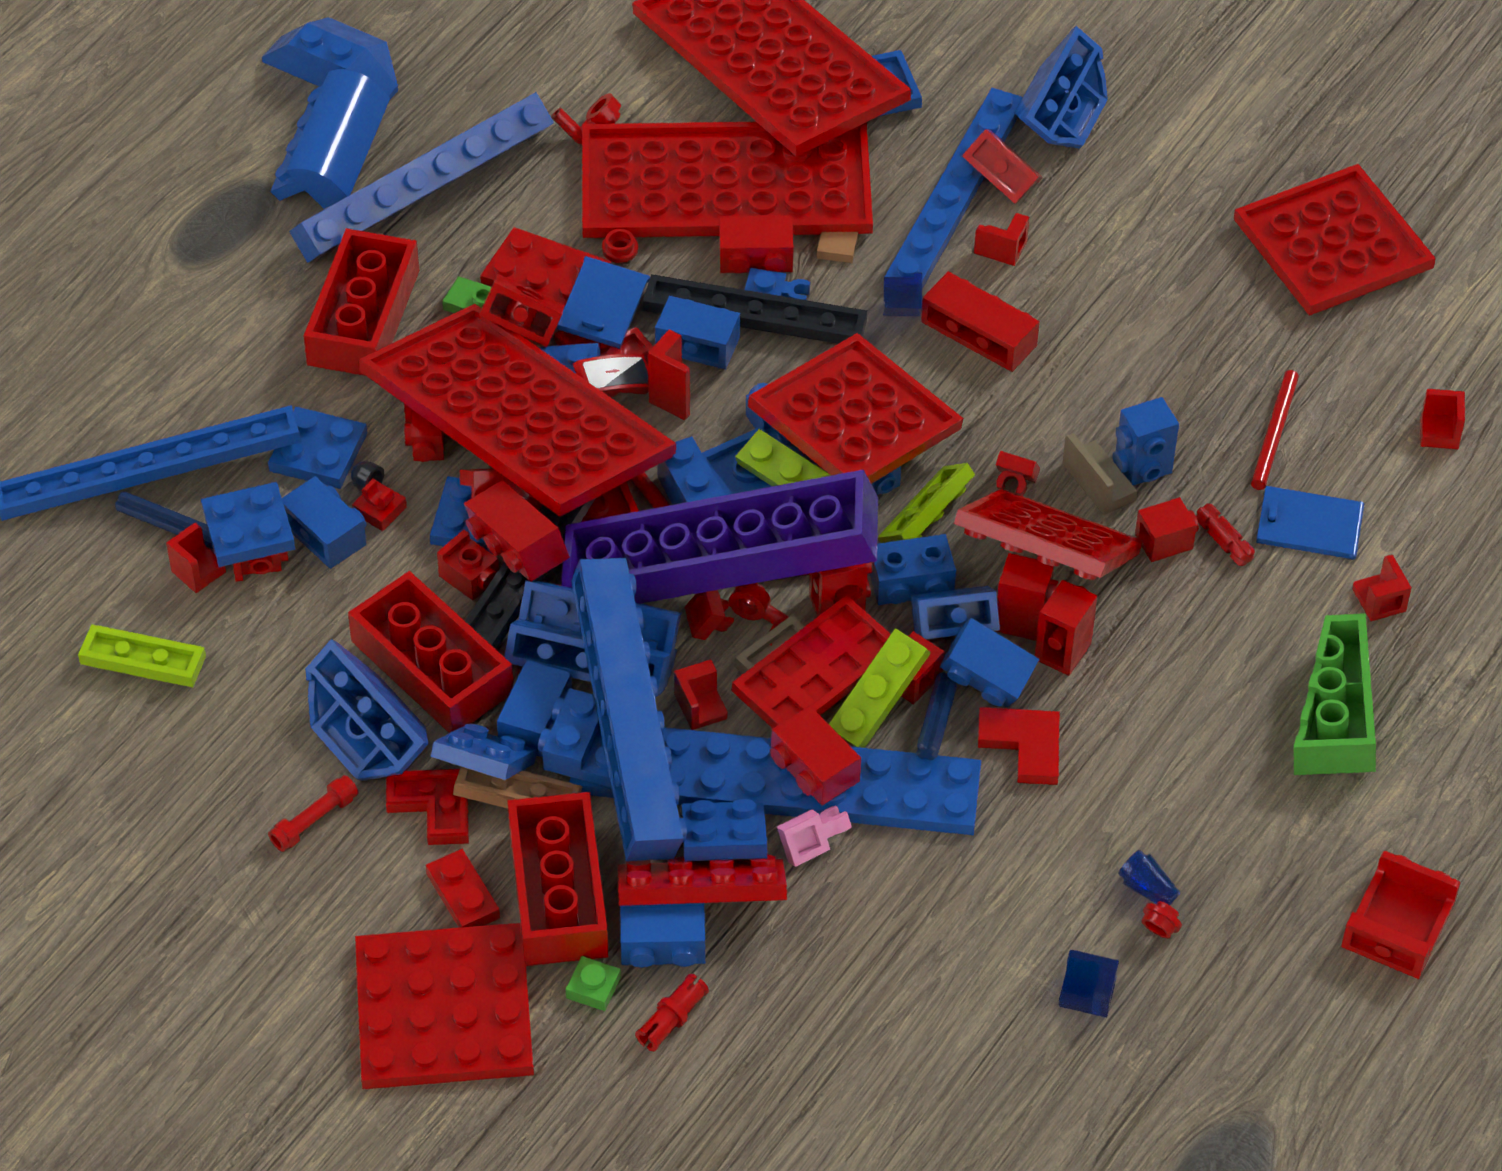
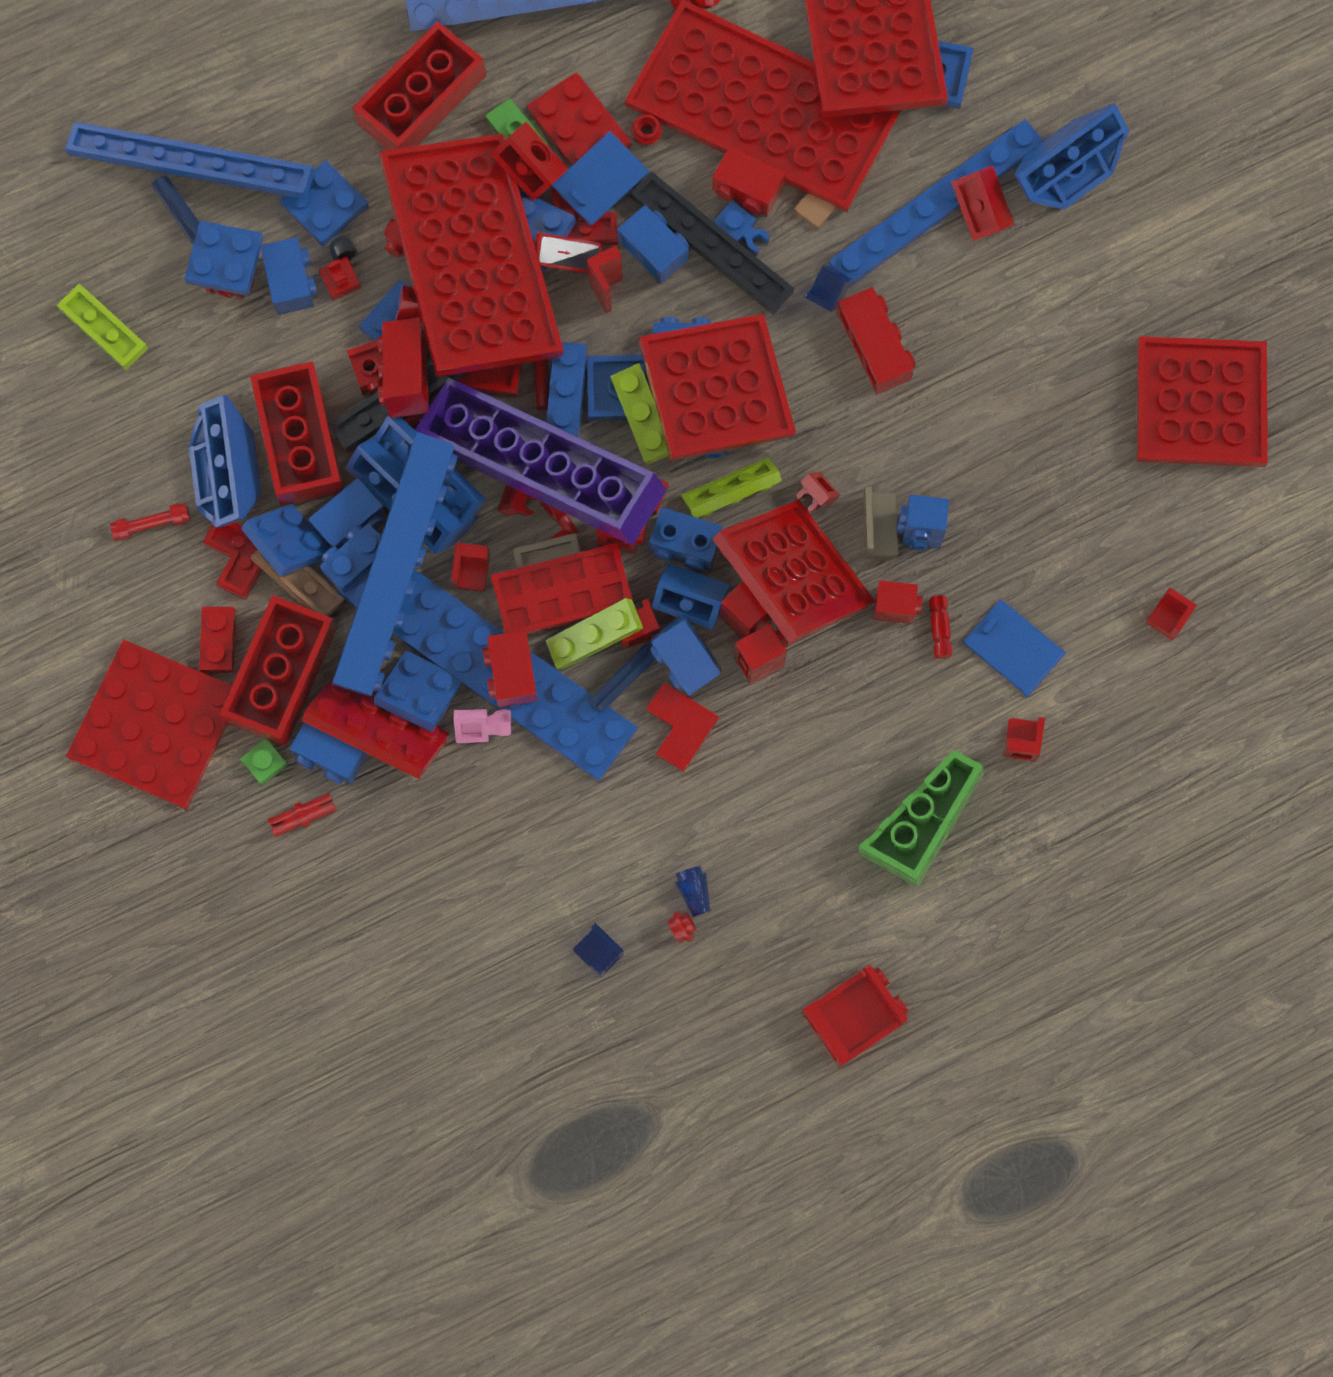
camera: 30 degrees right, 25 degrees up
(192, 559) = (176, 259): red panel -> none
(1000, 243) = (941, 271): red panel -> none
(1274, 430) = (1040, 552): red bar -> none

